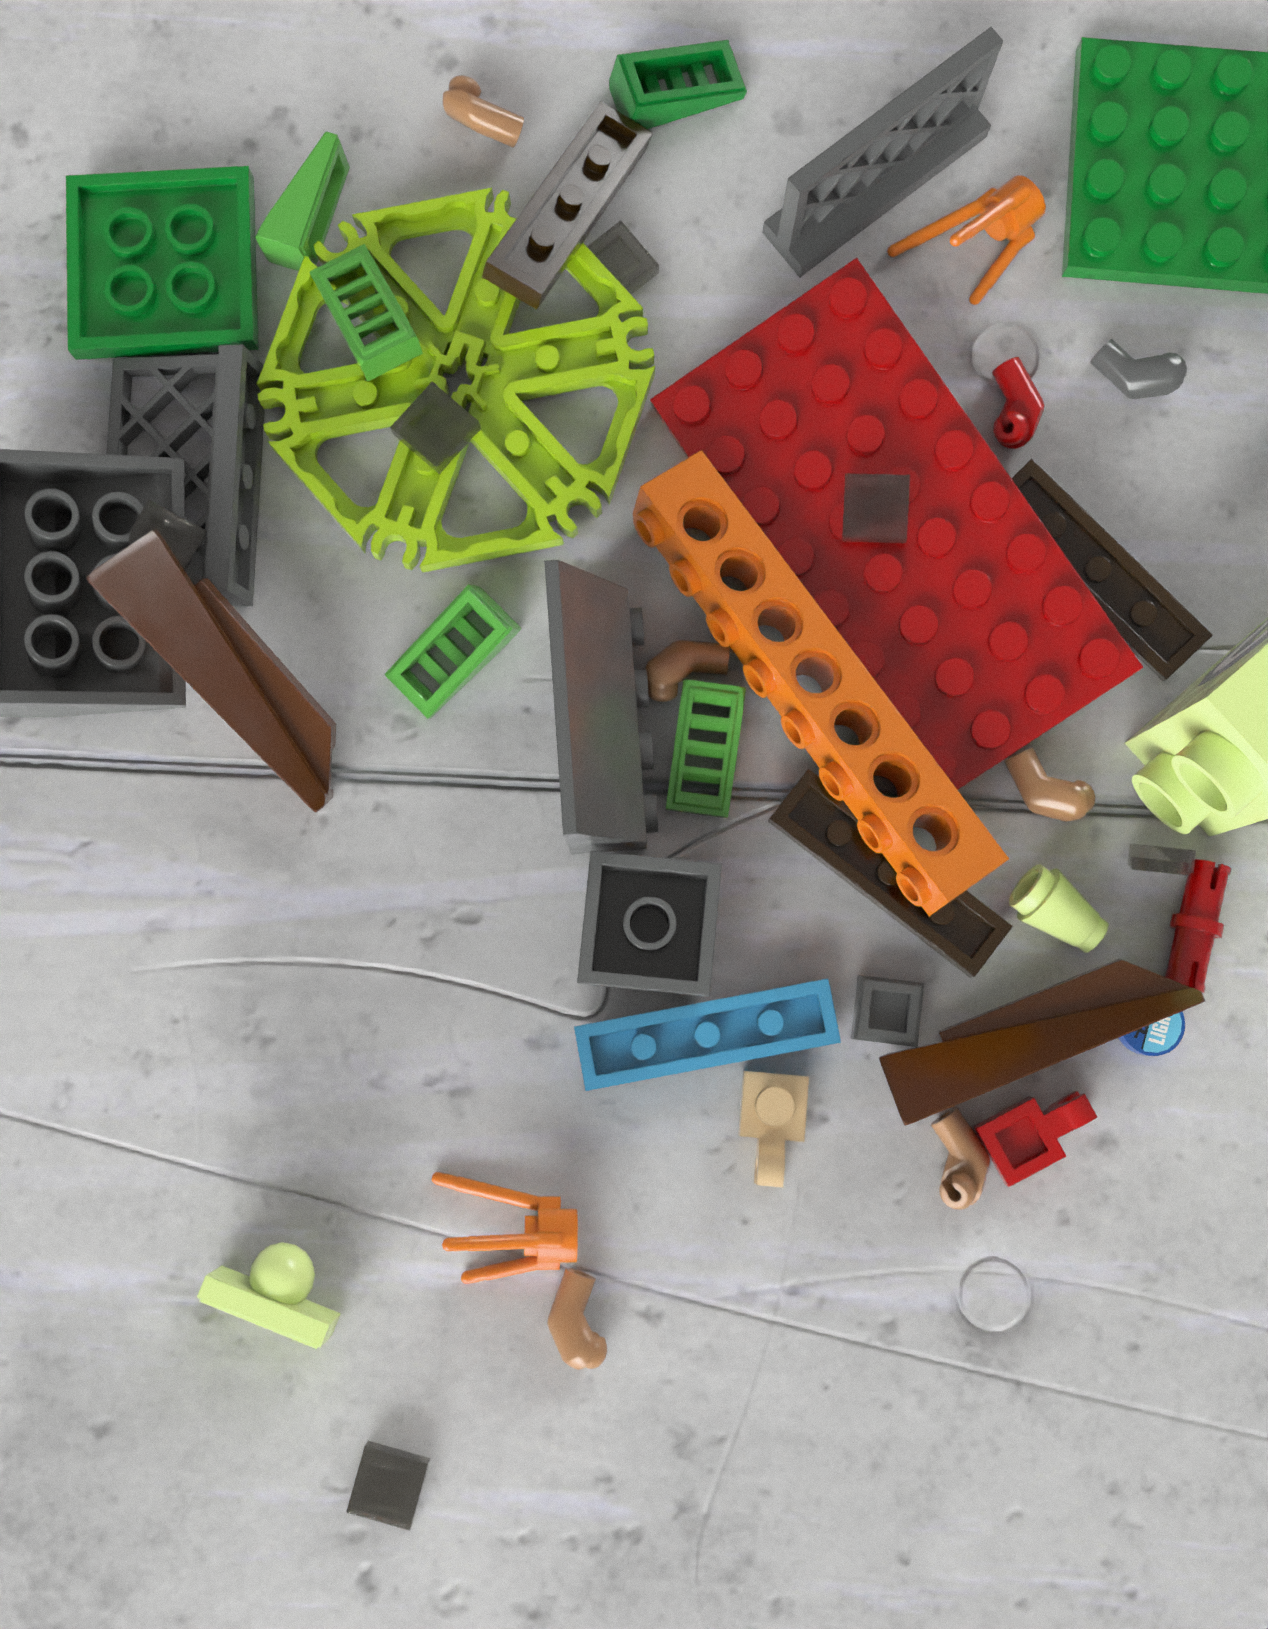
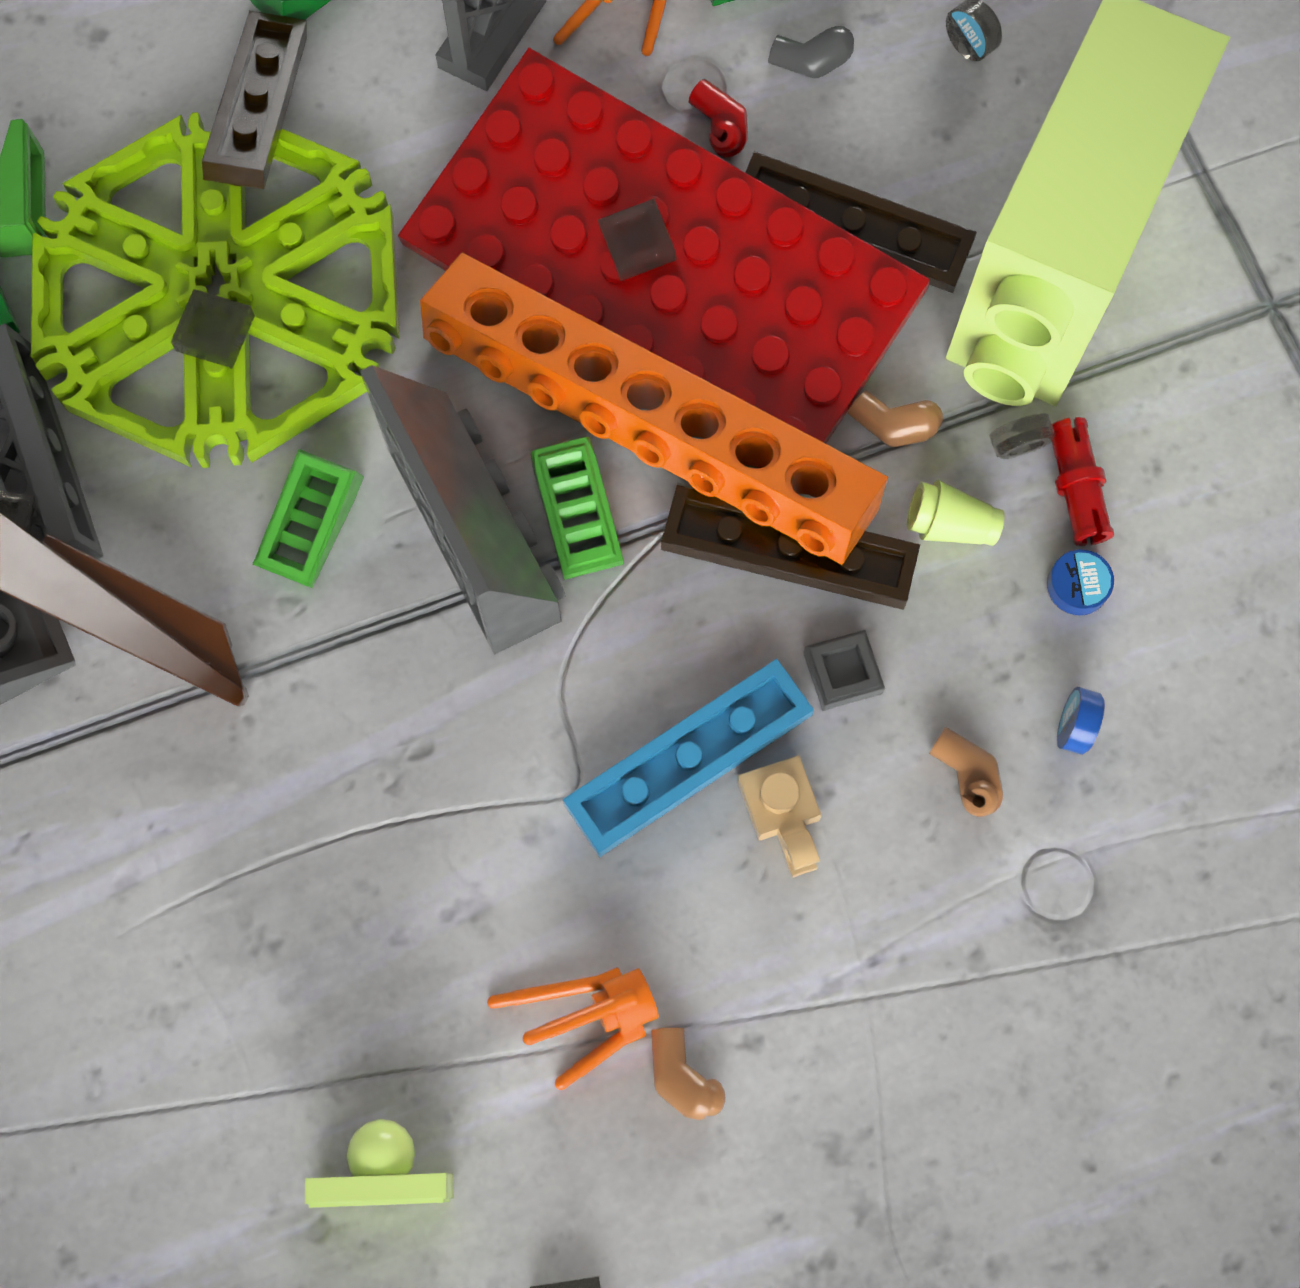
camera: 25 degrees left, 10 degrees down
(385, 351) = (137, 283): bright green slope -> none
(483, 117) = (131, 61): medium nougat arm -> none
(625, 257) = (326, 128): clear smoke tile -> none
(649, 923) = (593, 675): dark grey brick -> none
(678, 661) = (524, 438): medium nougat arm -> none
(1025, 1138) = (1019, 723): red plate -> none
(1030, 1036) = (979, 630): reddish brown wedge -> none
(1087, 1159) = (1080, 720): none -> blue tile

